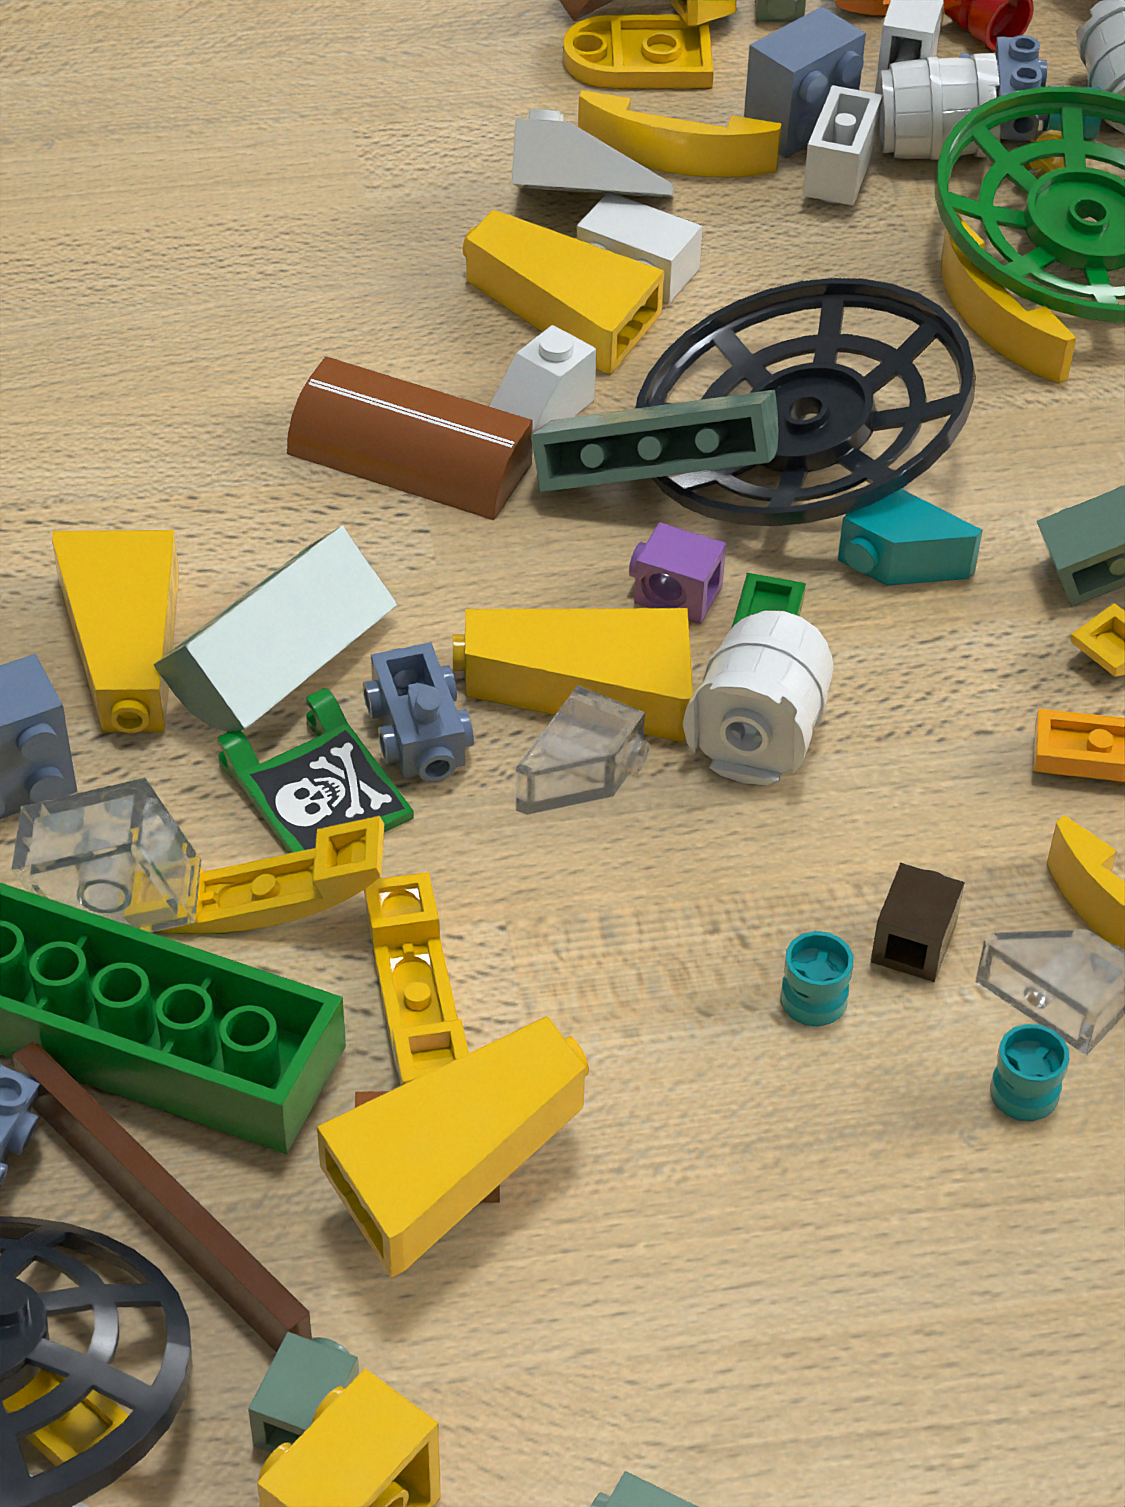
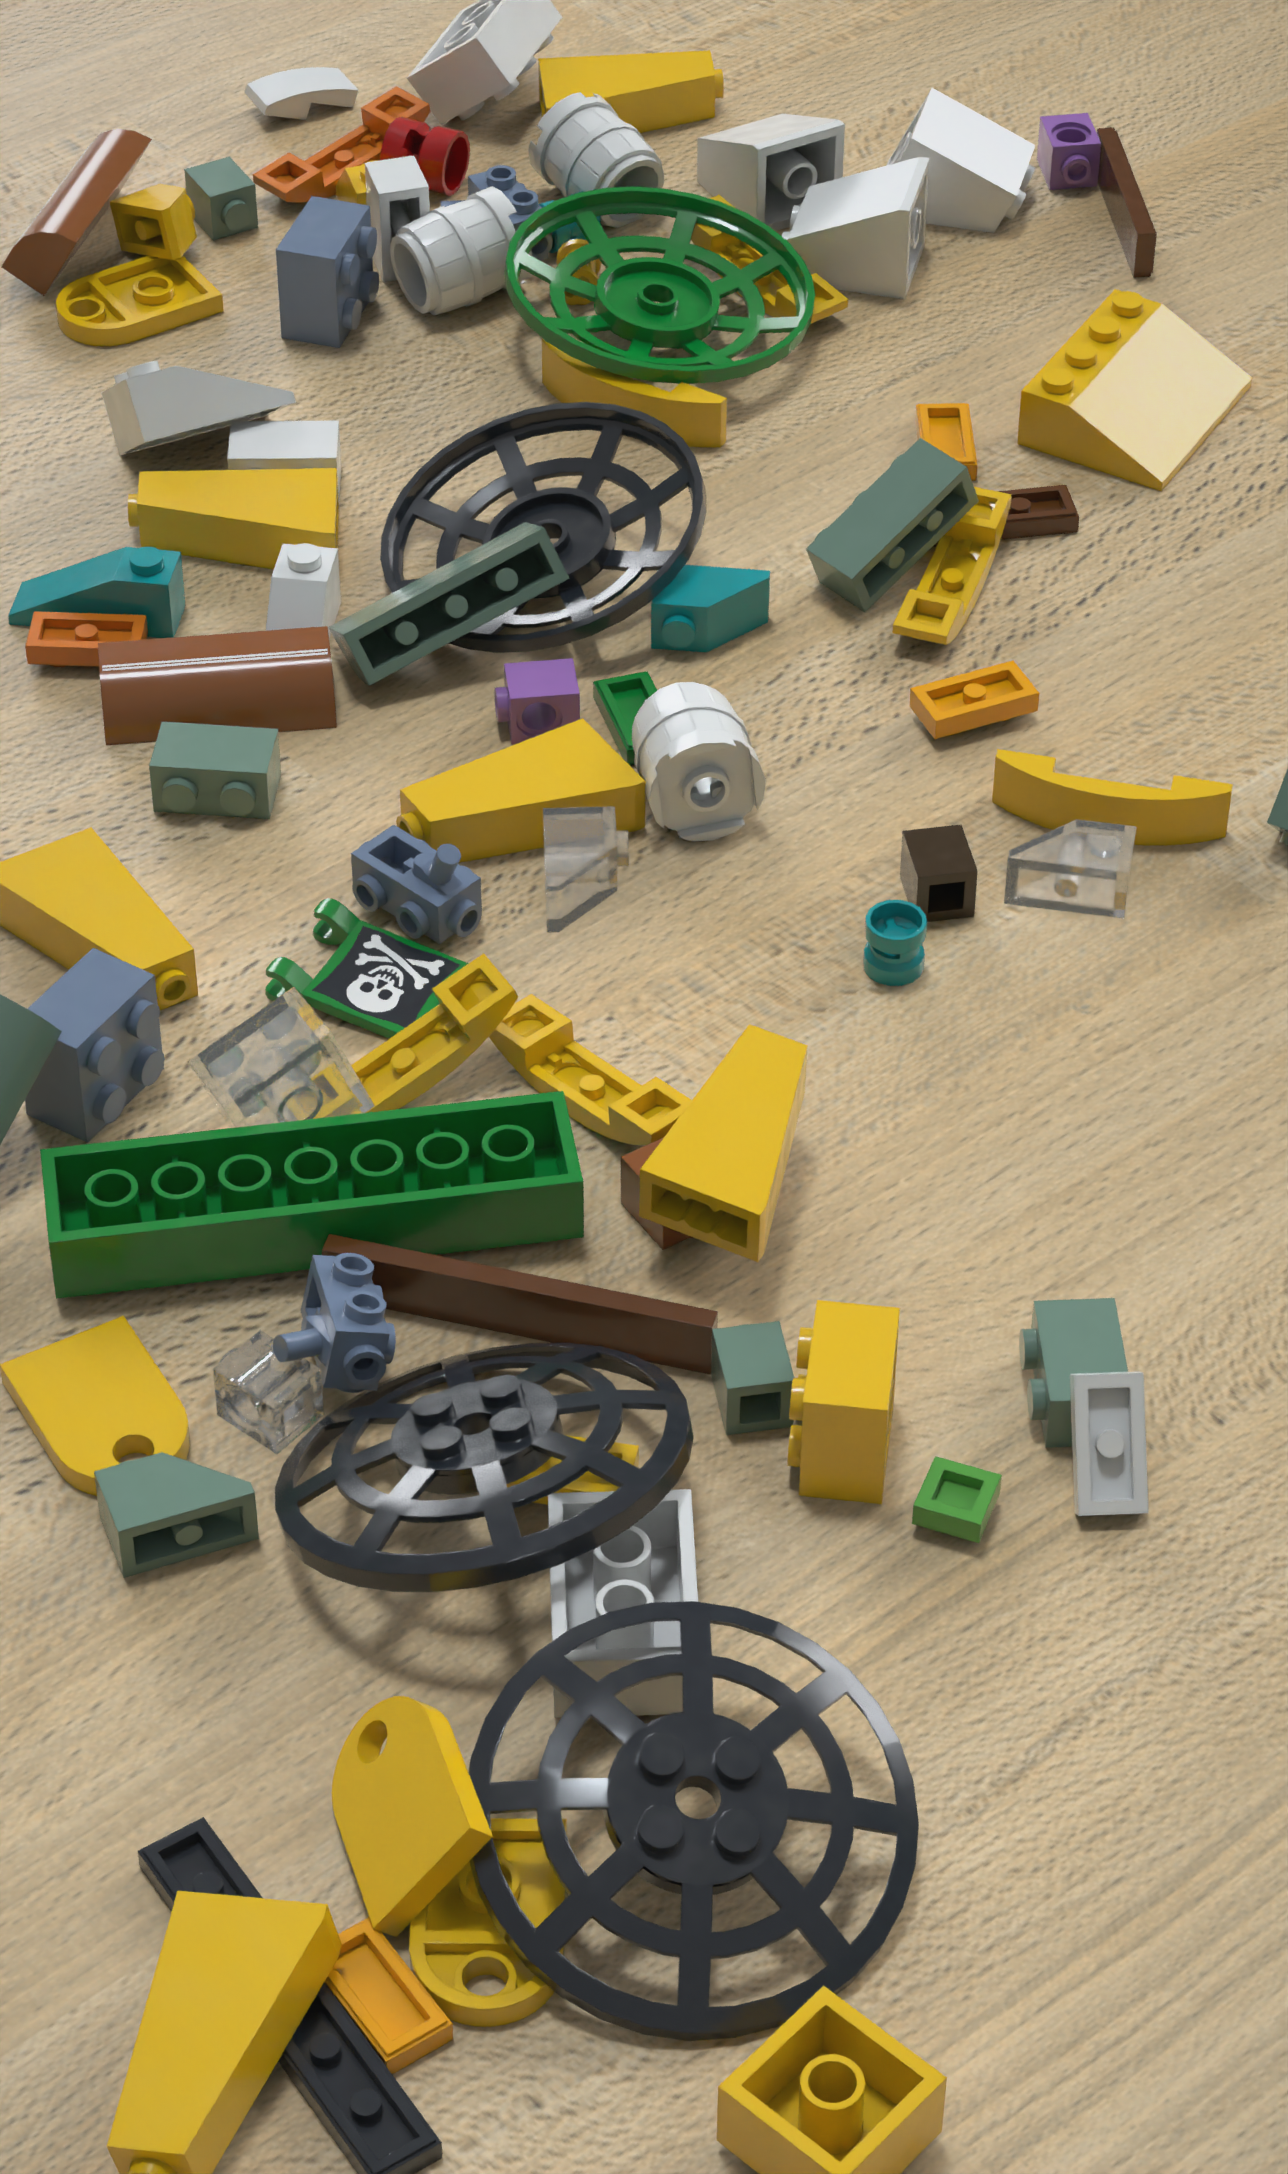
camera: 30 degrees left, 5 degrees down
(277, 634) = (249, 872): brick -> none
(322, 334) = (74, 637): none -> orange plate
(327, 496) = (215, 770): none -> sand green brick
(392, 314) = (114, 583): none -> teal slope
(681, 145) = (271, 360): yellow slope -> none
(842, 145) = (399, 314): white brick -> none
(1029, 1072) = (1101, 938): teal wheel -> none

